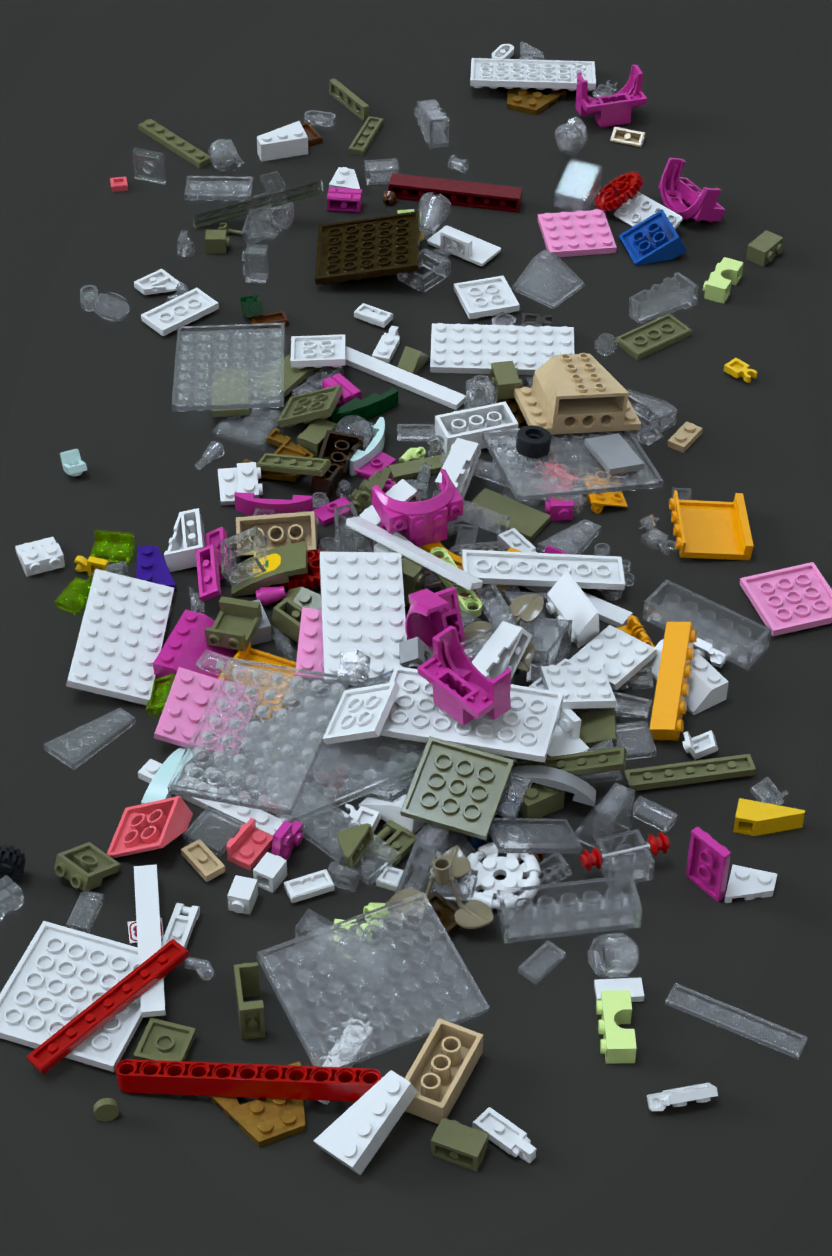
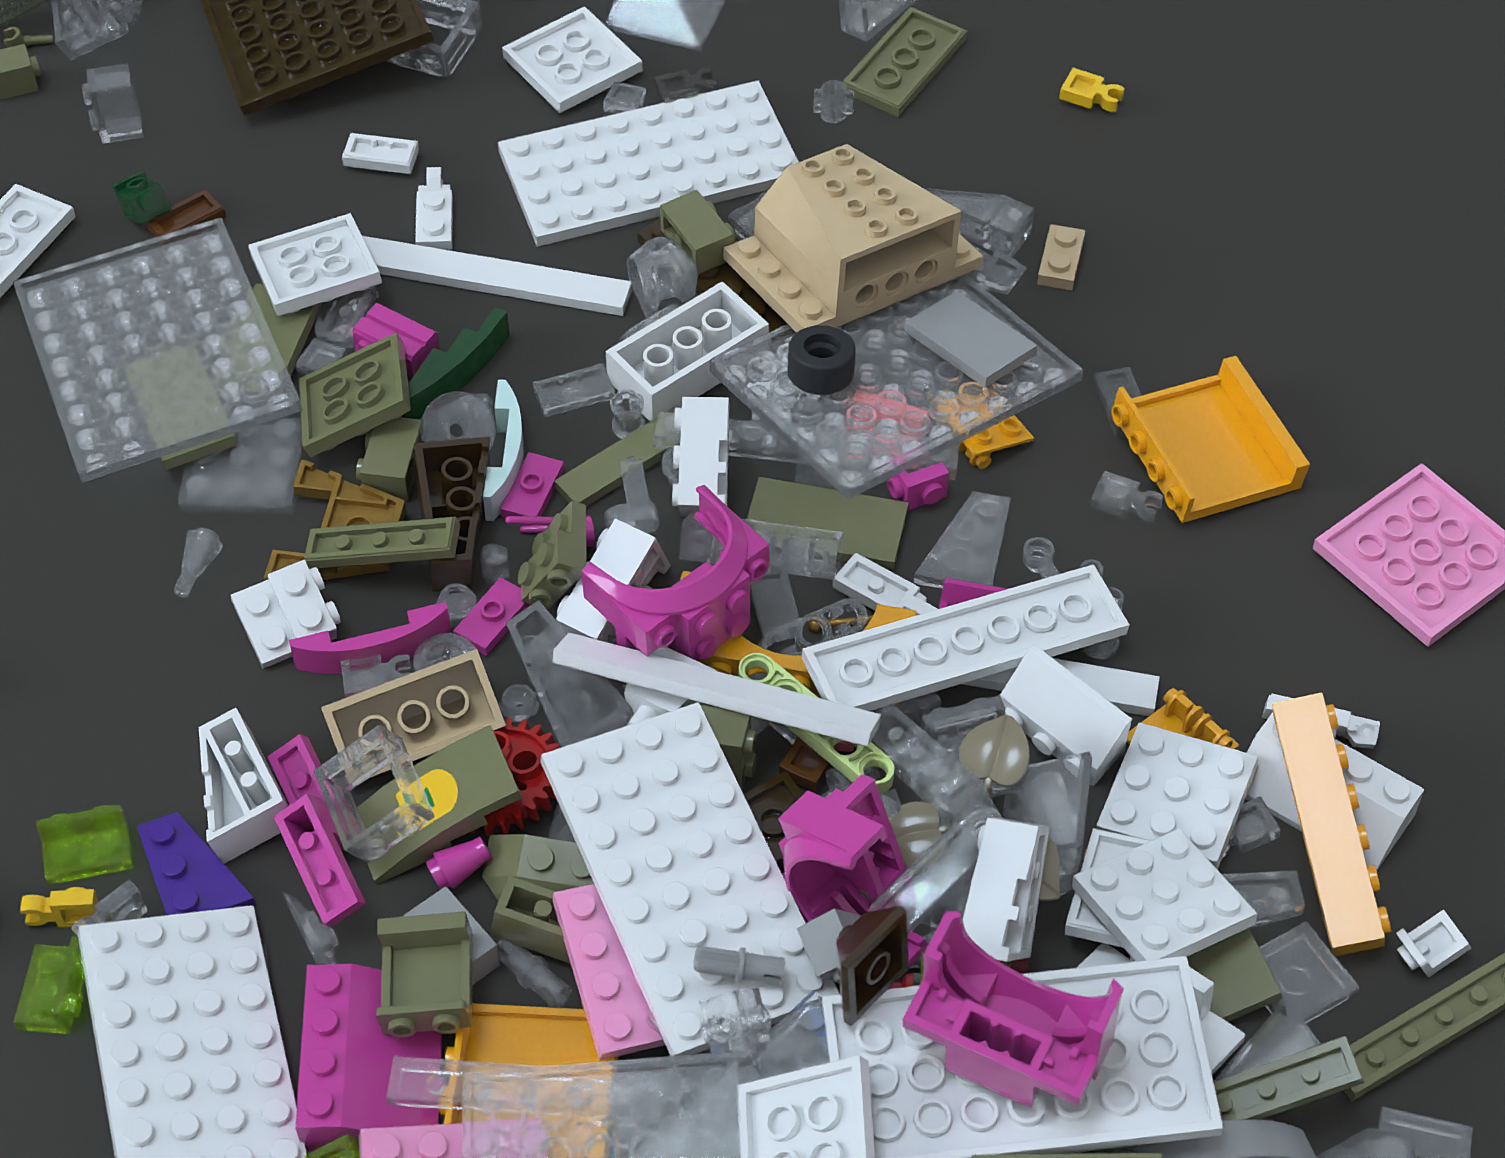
camera: 20 degrees left, 10 degrees up
(368, 649) = (739, 965): none -> light grey axle
(412, 360) = (497, 233): olive slope -> none
(413, 454) = (589, 440): yellowish green arm -> none
(415, 651) = (871, 958): none -> dark brown slope
(648, 522) = (1090, 463): clear plate -> none
(726, 630) = (1270, 650): clear brick -> none

